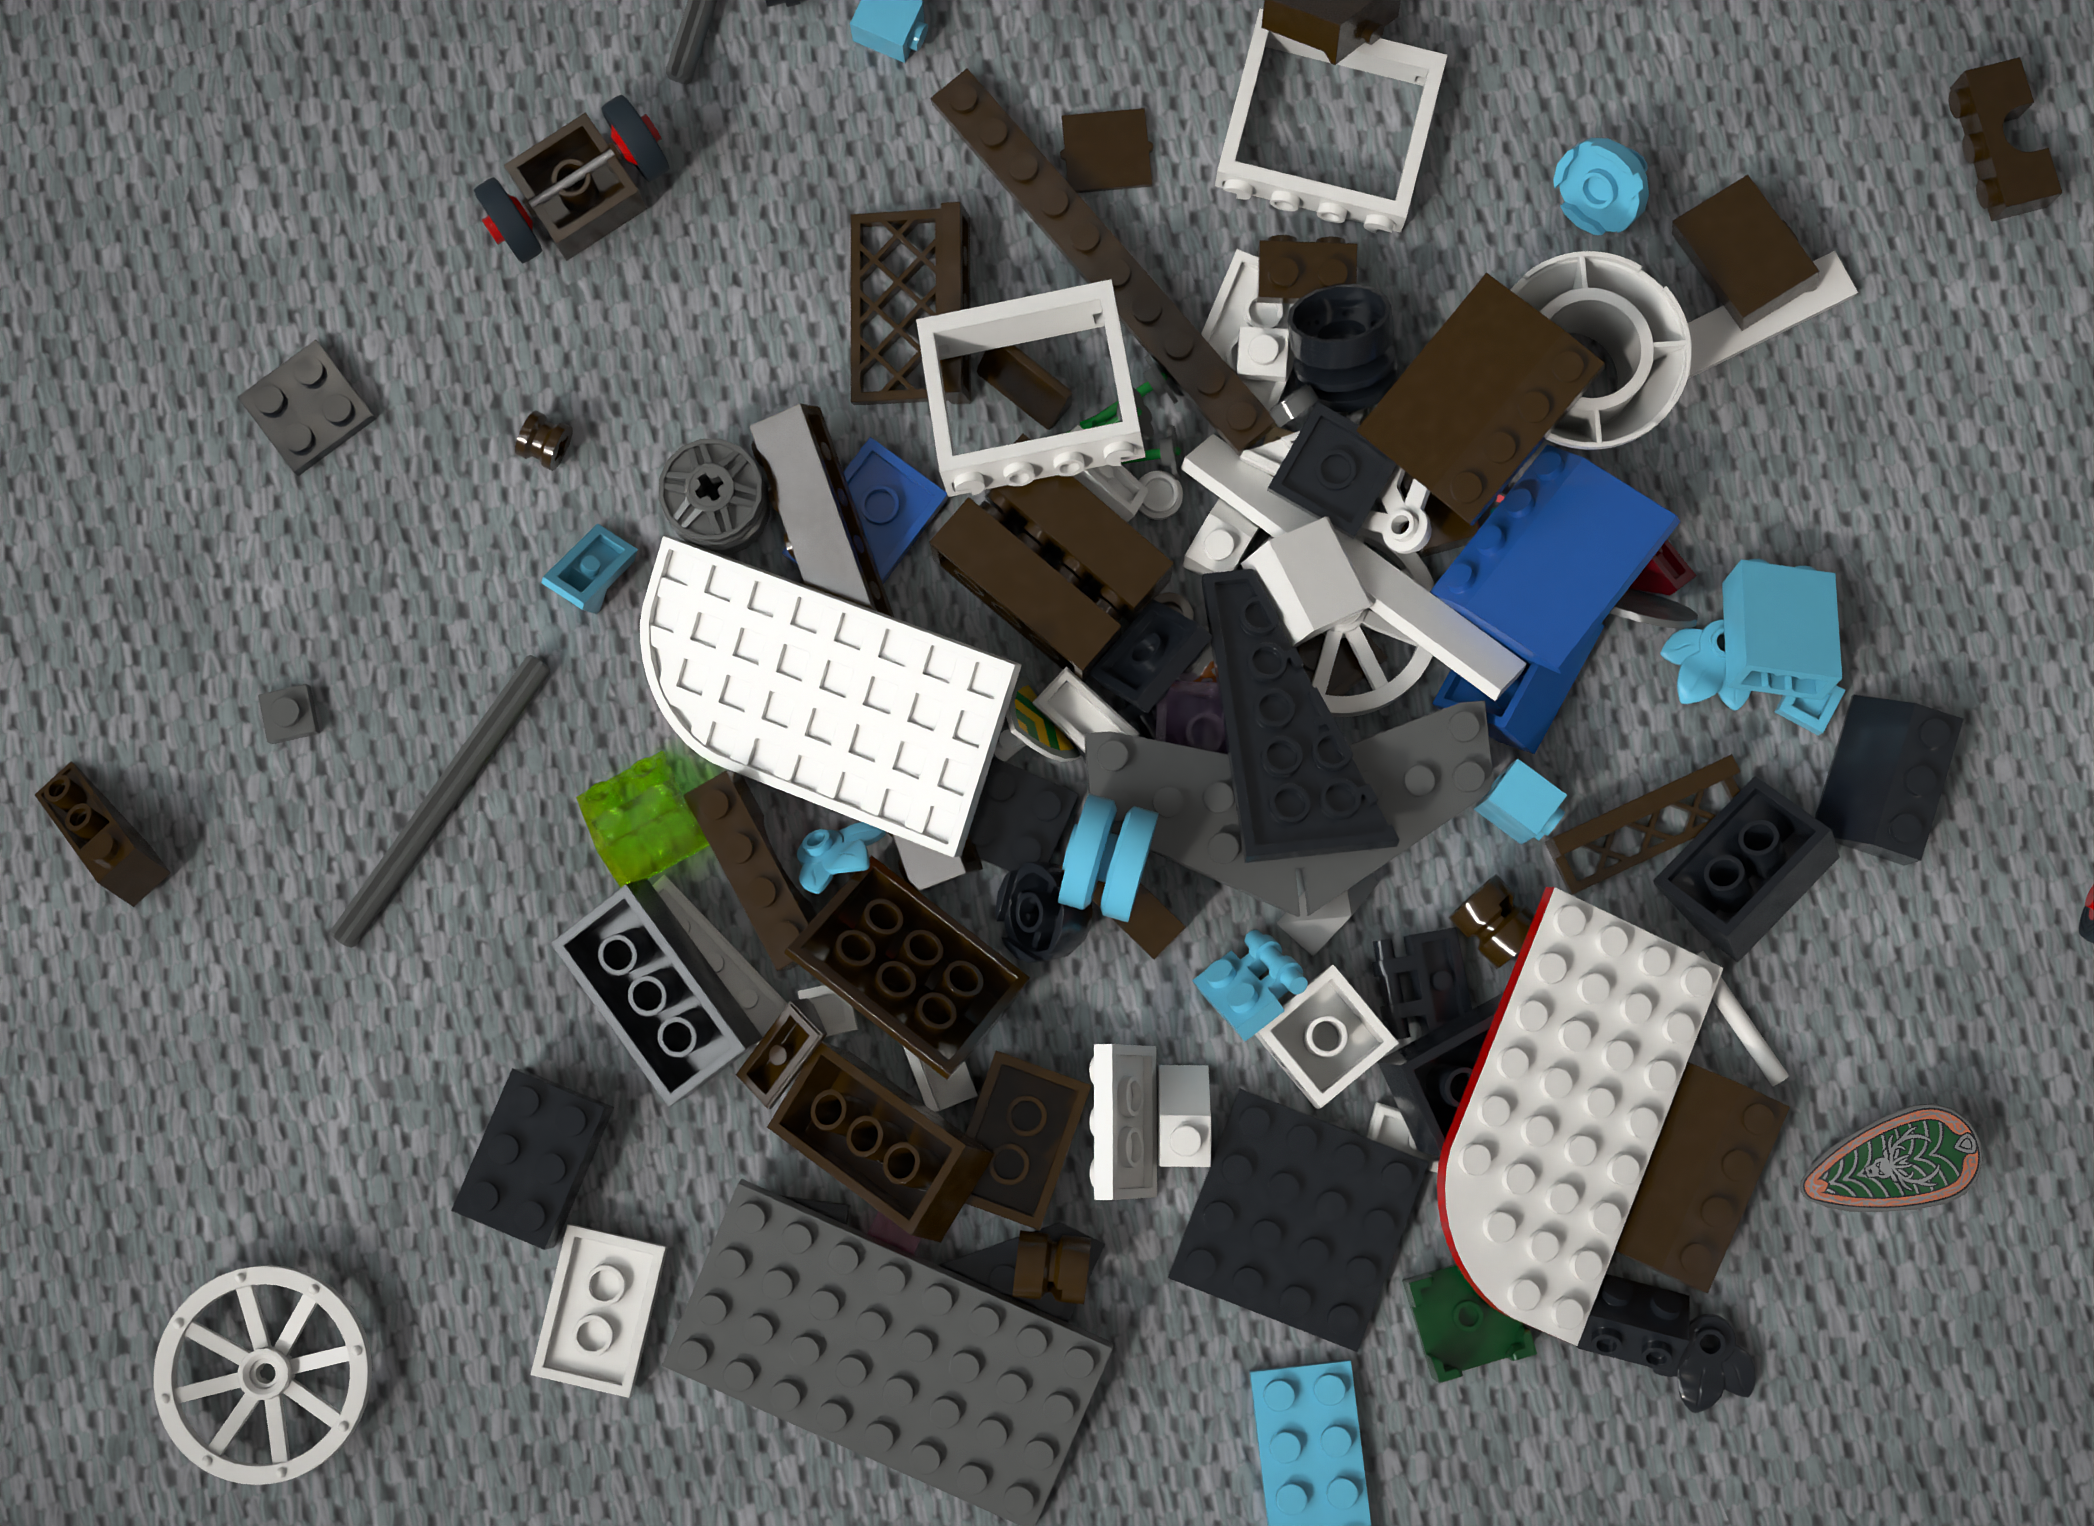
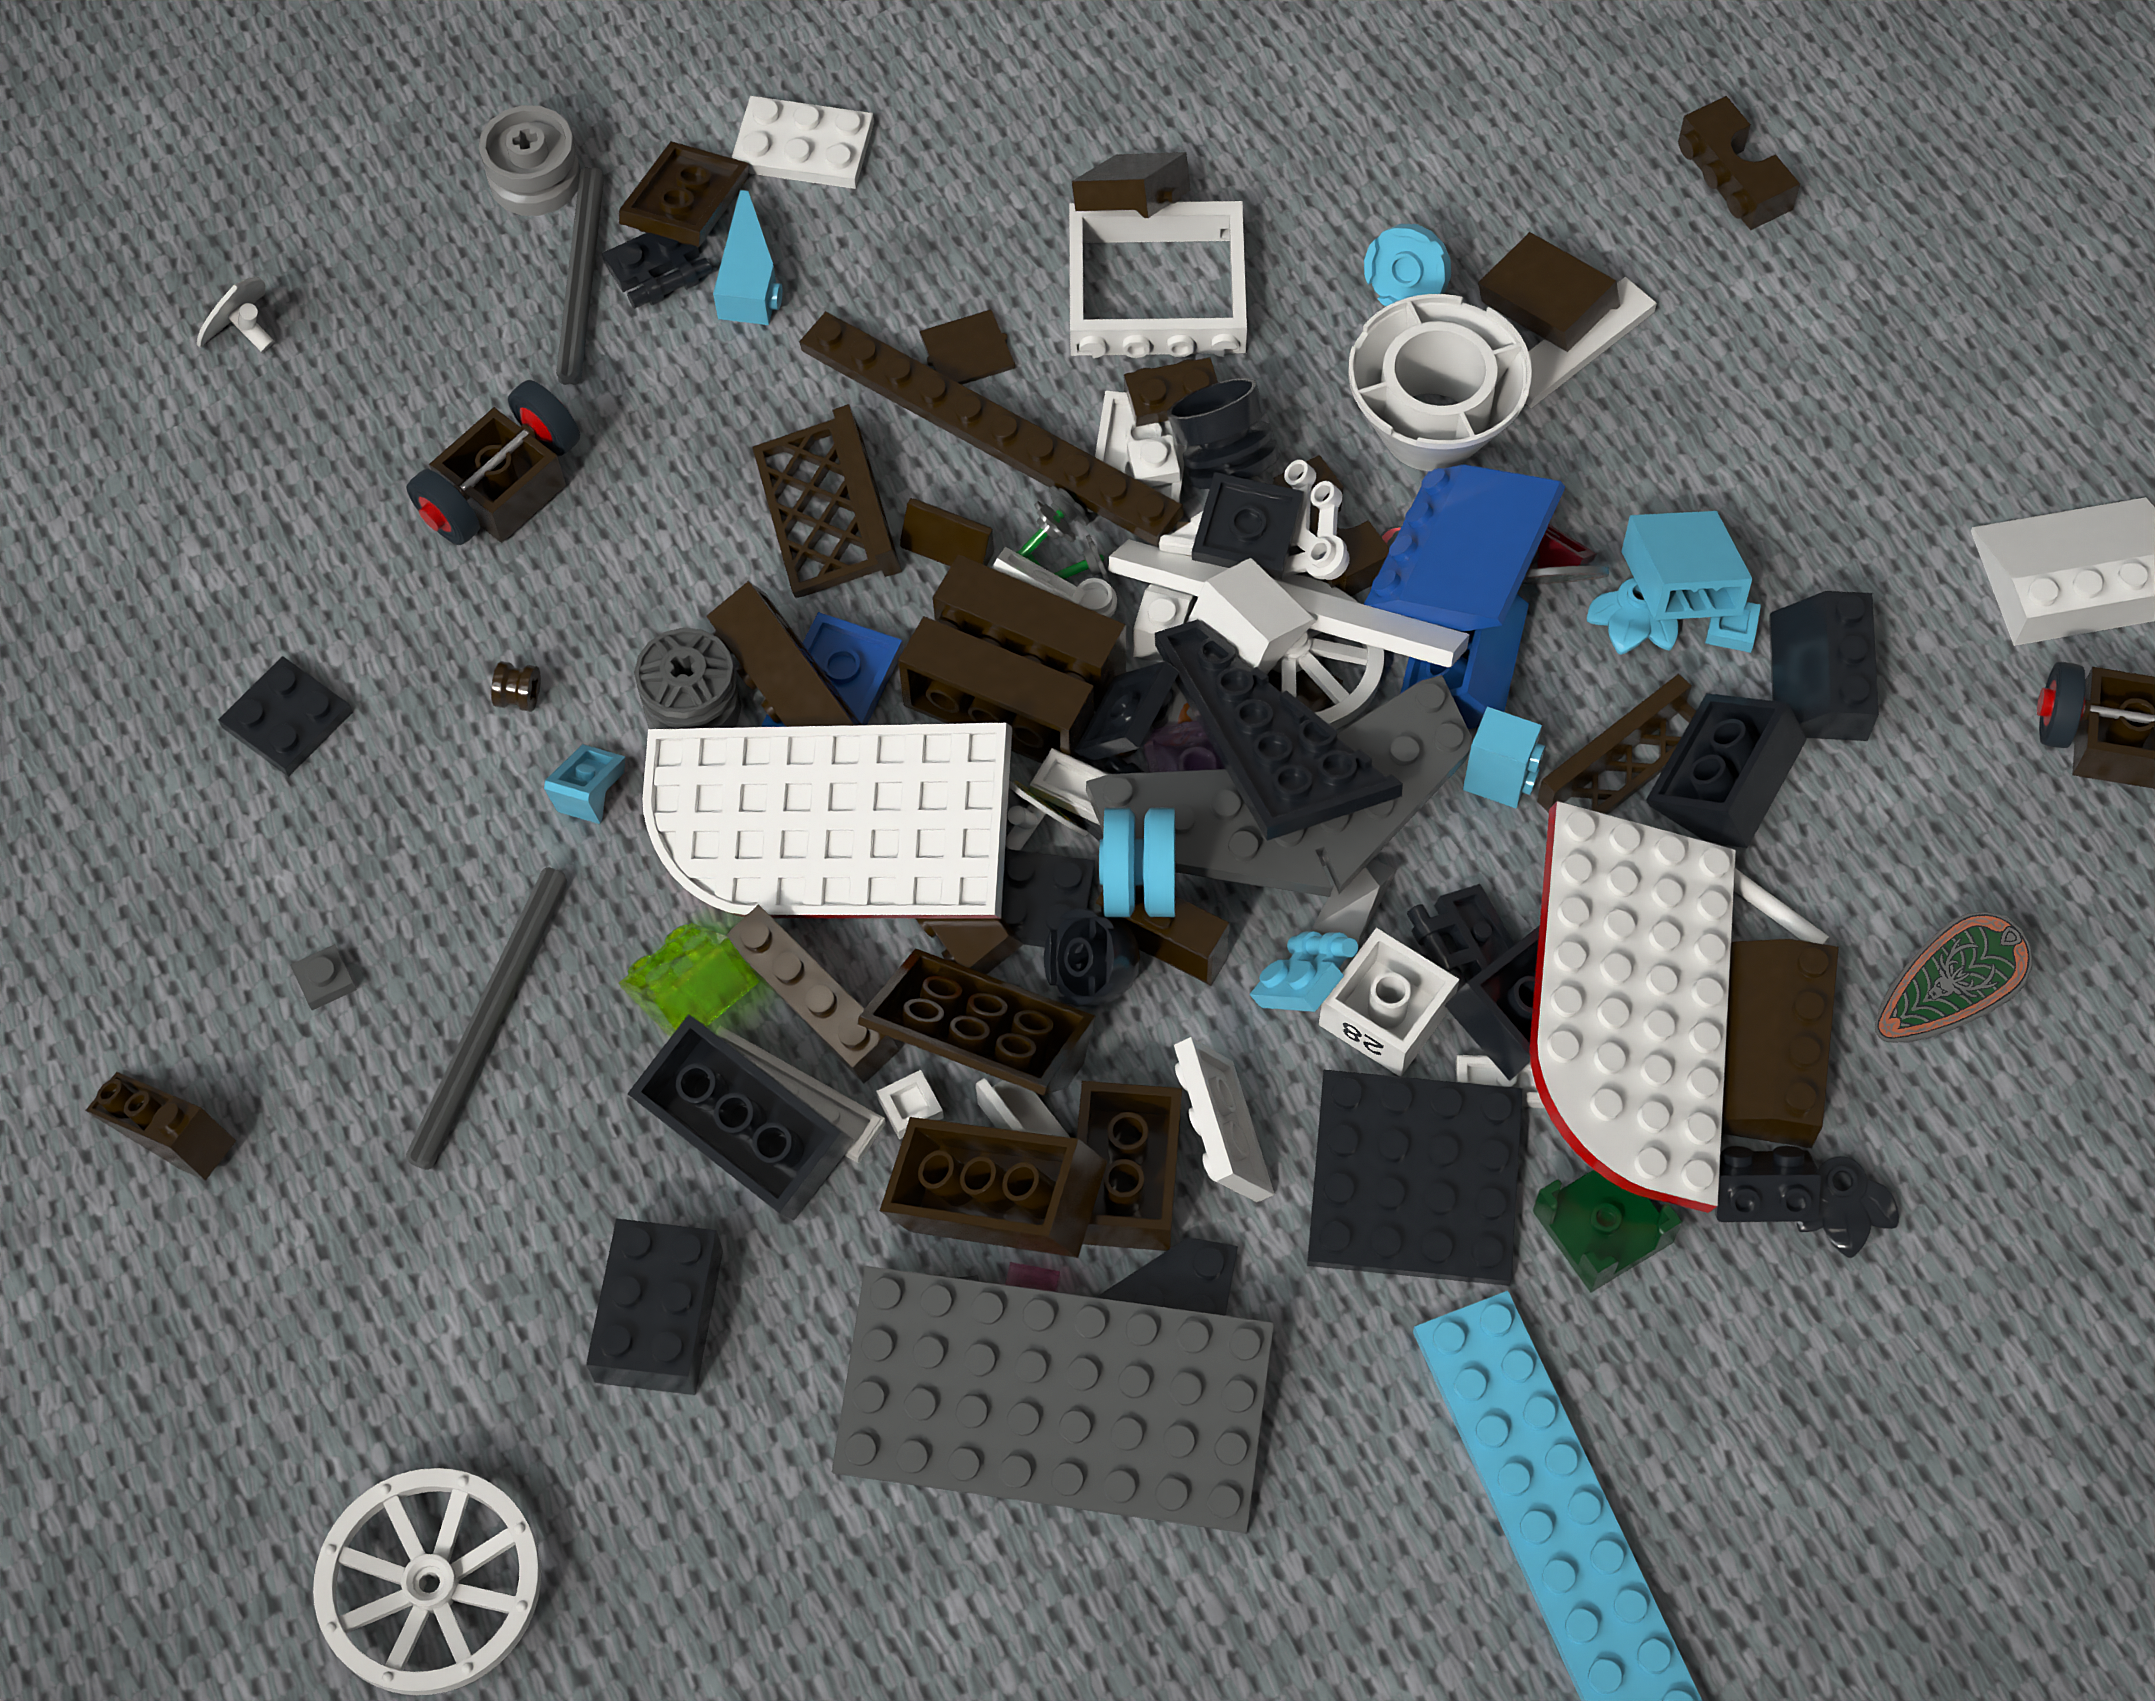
camera: 15 degrees left, 20 degrees down
(599, 1310) = (755, 1436): white plate -> none
(783, 1051) = (876, 1142): dark brown slope -> none
(835, 852) = (870, 965): medium azure plate -> none
(1017, 323) = (934, 473): white window -> none
(1052, 1267) = (1192, 1263): dark brown wheel -> none
(1184, 1116) = (1280, 1116): white slope -> none
(1293, 405) = (1193, 484): dark grey tile -> none
(1481, 398) = (1359, 423): dark brown slope -> none
(1494, 921) = (1511, 866): dark brown wheel -> none

